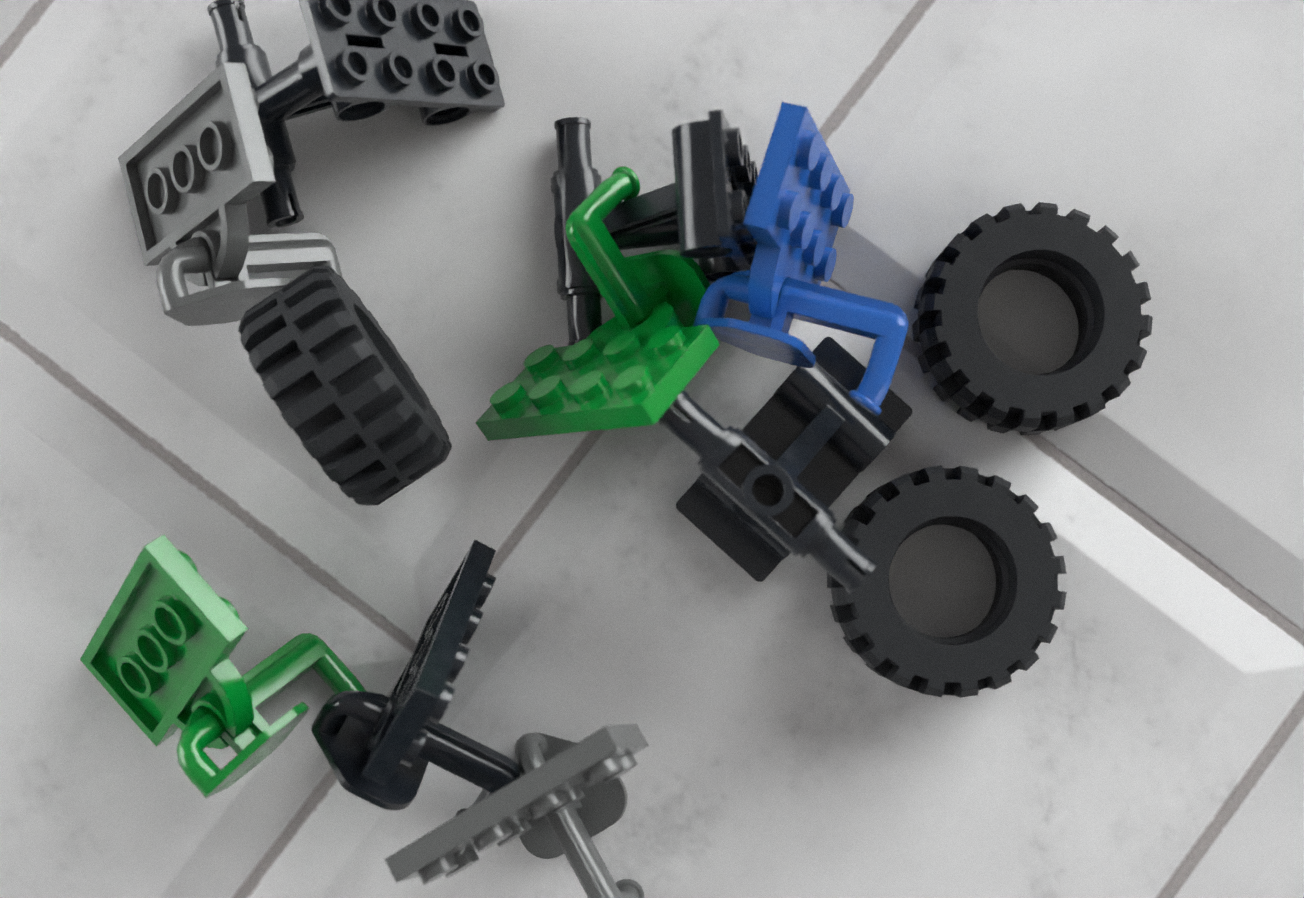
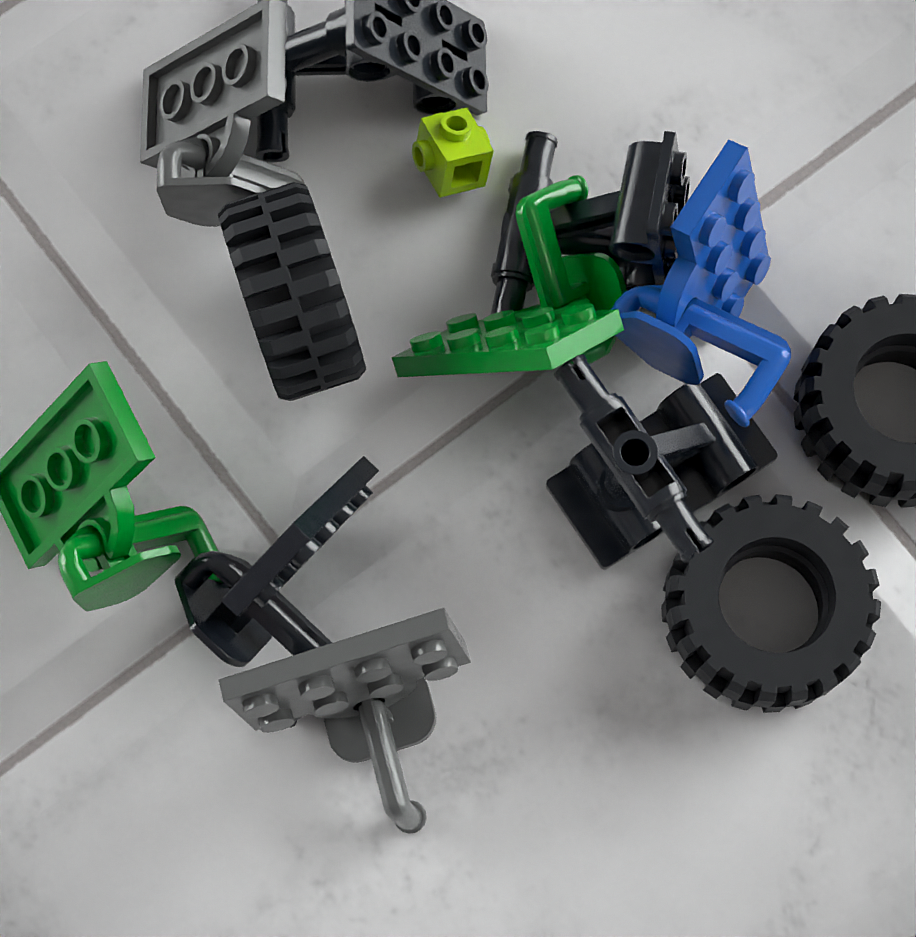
camera: 10 degrees right, 10 degrees down
(479, 166) = (453, 152): none -> lime brick

